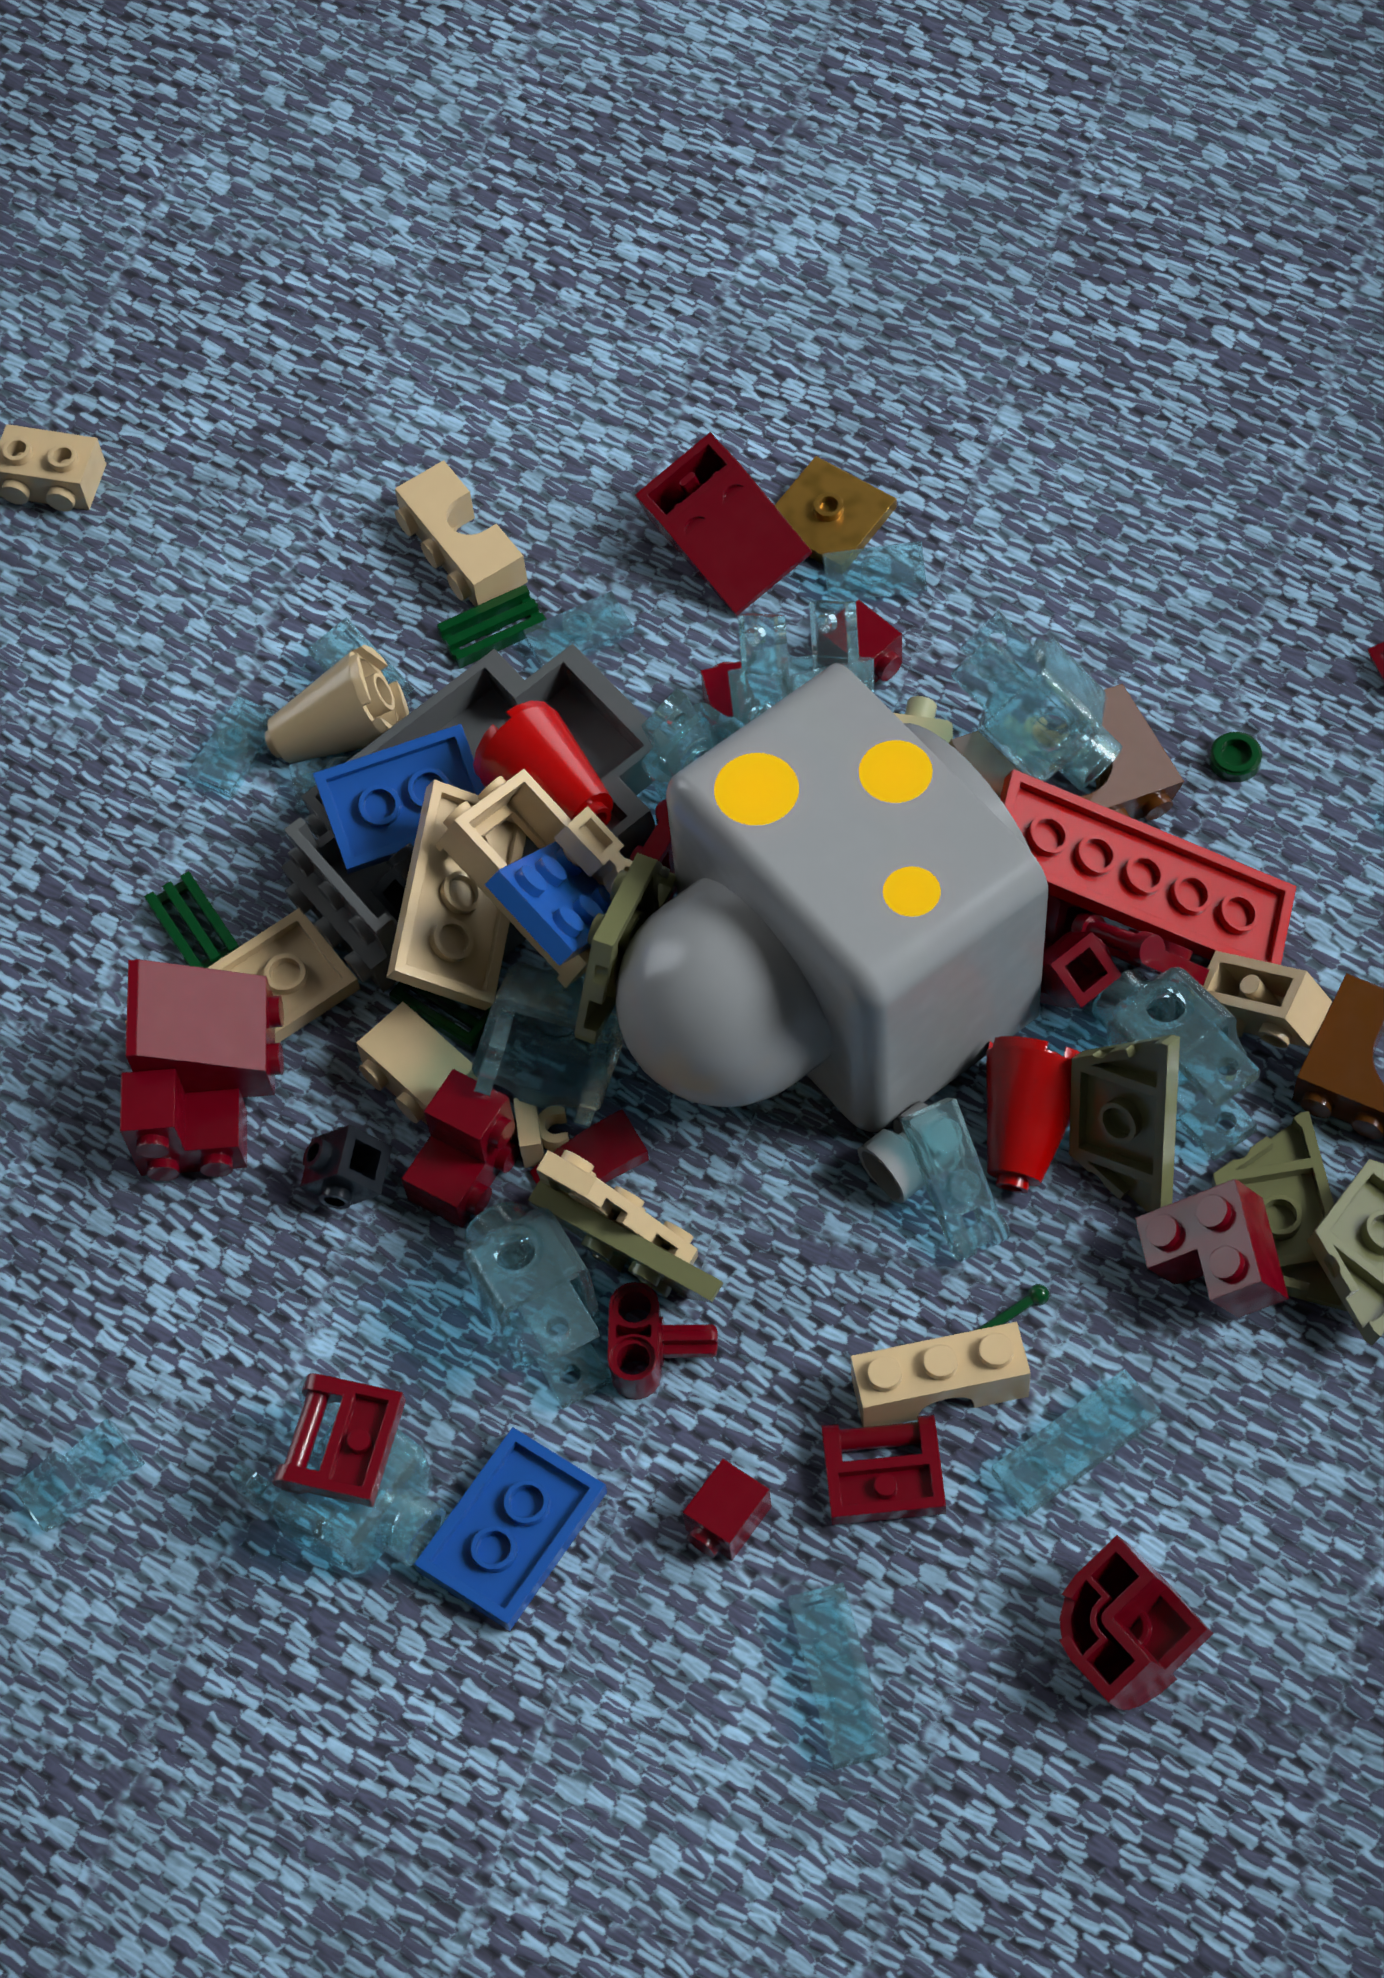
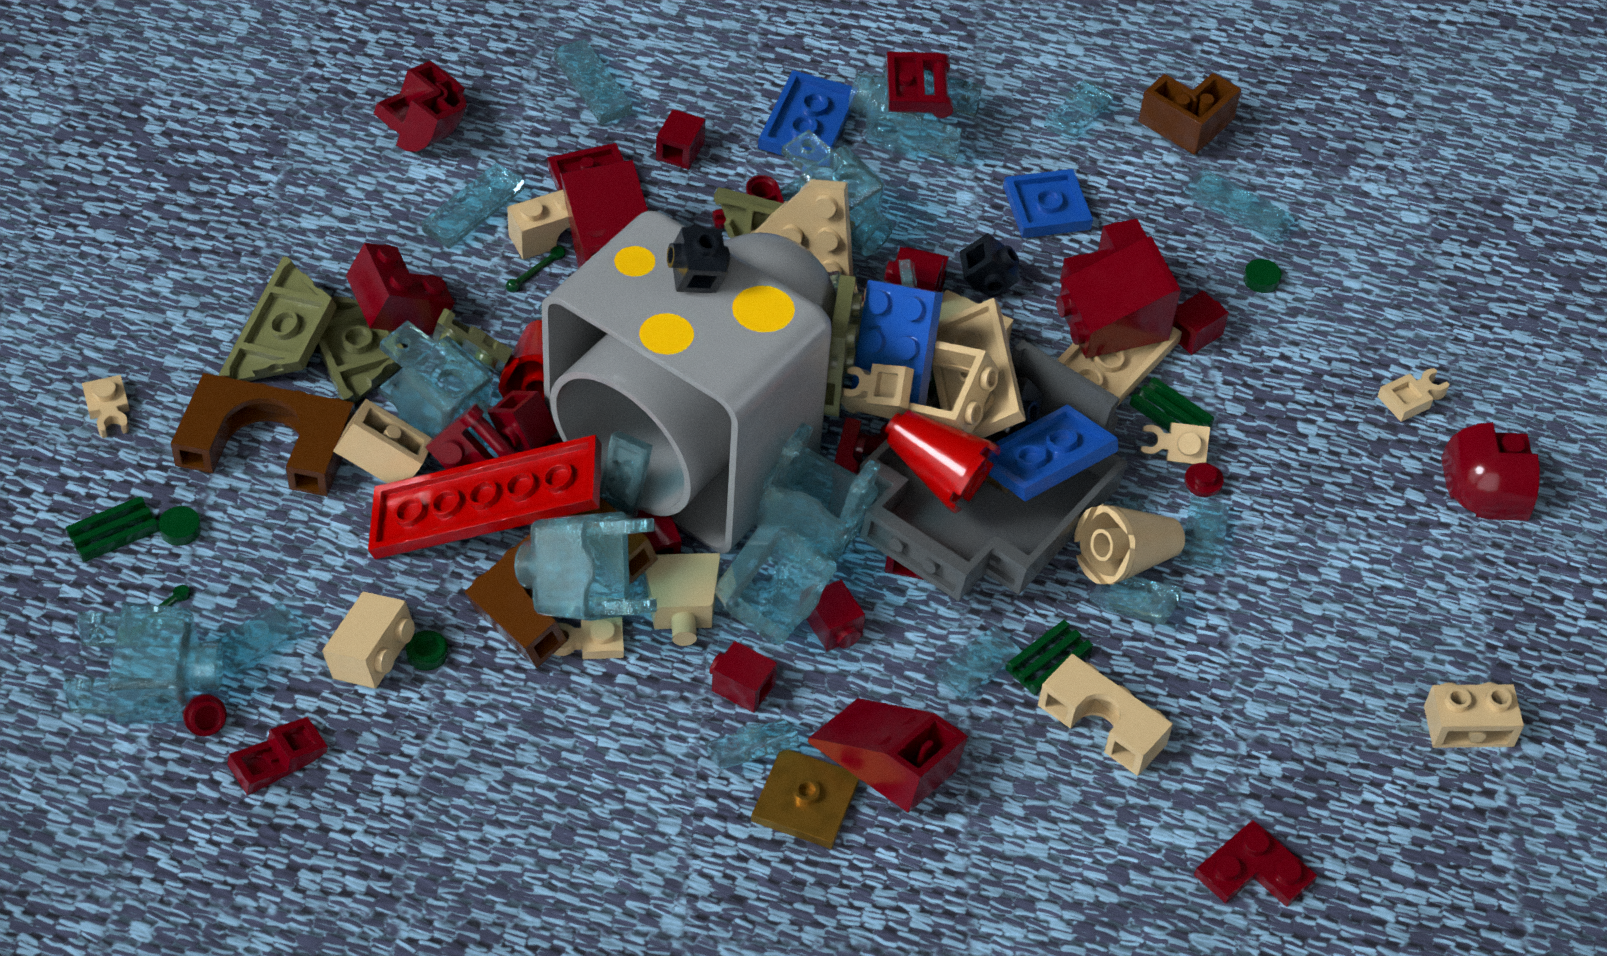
camera: 155 degrees right, 10 degrees down
(91, 1036) = (1200, 321): none -> dark red brick
(200, 815) = (1203, 479): none -> dark red plate
(205, 861) = (1183, 442): none -> tan plate
(208, 1290) = (1047, 203): none -> blue plate
(368, 379) = (1256, 856): none -> dark red plate
(830, 829) = (698, 259): none -> black brick
(883, 1296) = (601, 204): none -> dark red slope
(1306, 753) = (369, 640): none -> tan brick

